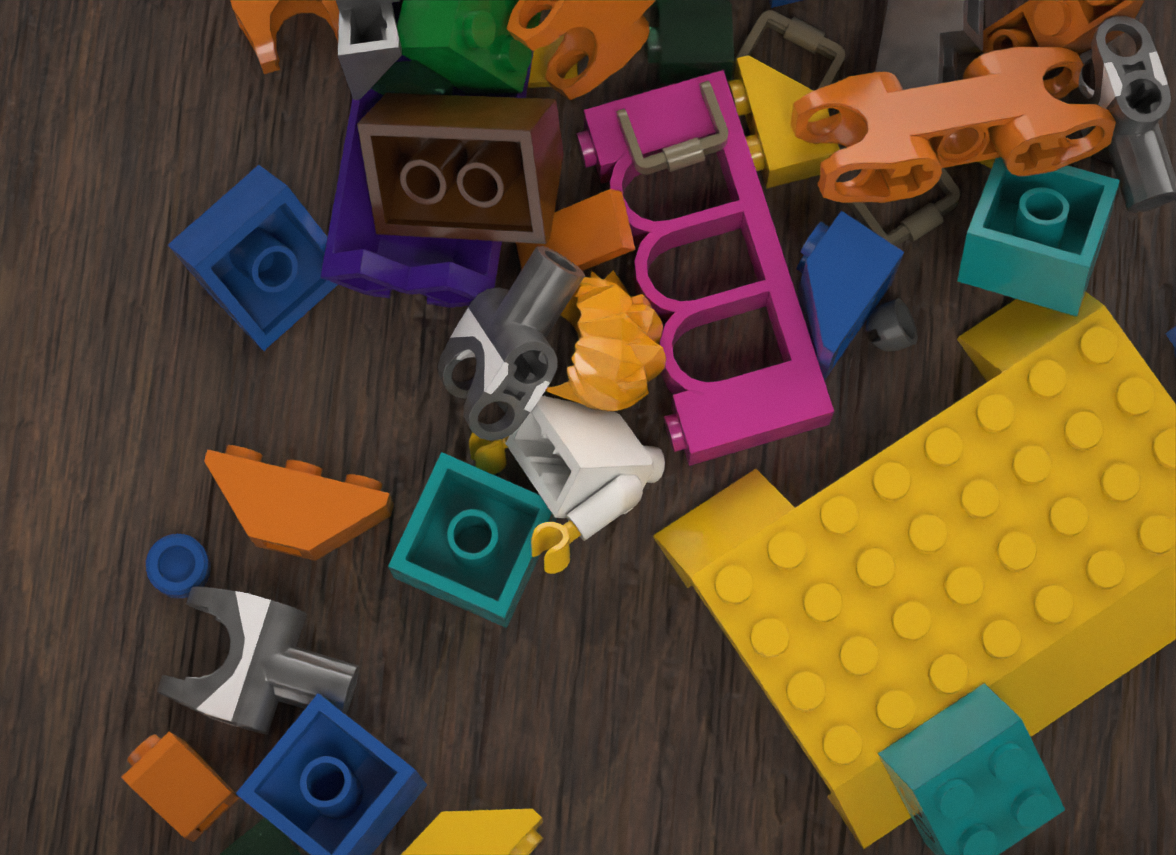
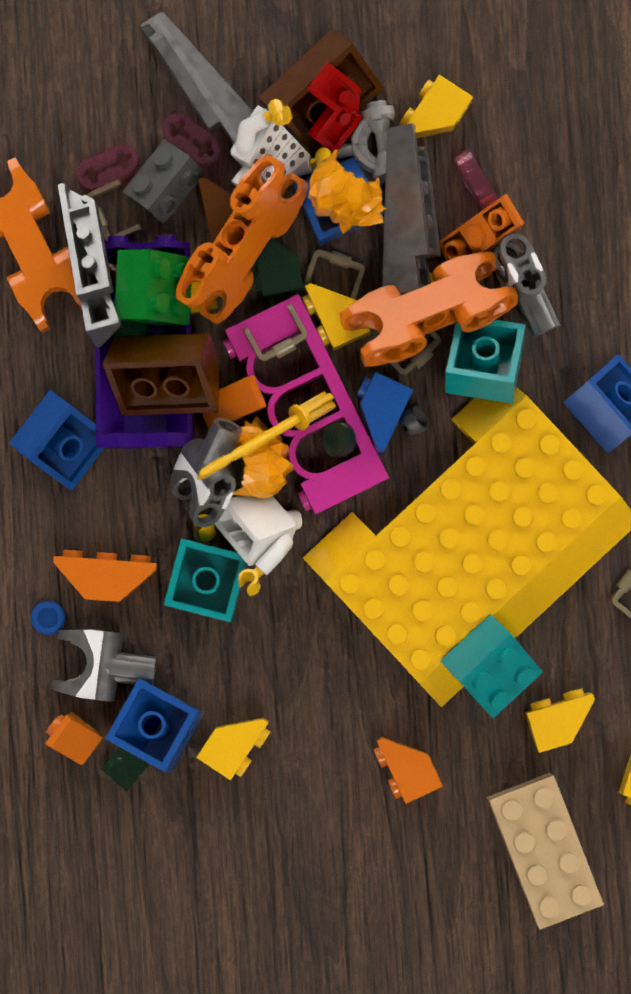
camera: 15 degrees left, 10 degrees up
(689, 275) = (299, 416): none -> yellow piece
(754, 330) = (339, 439): none -> tile

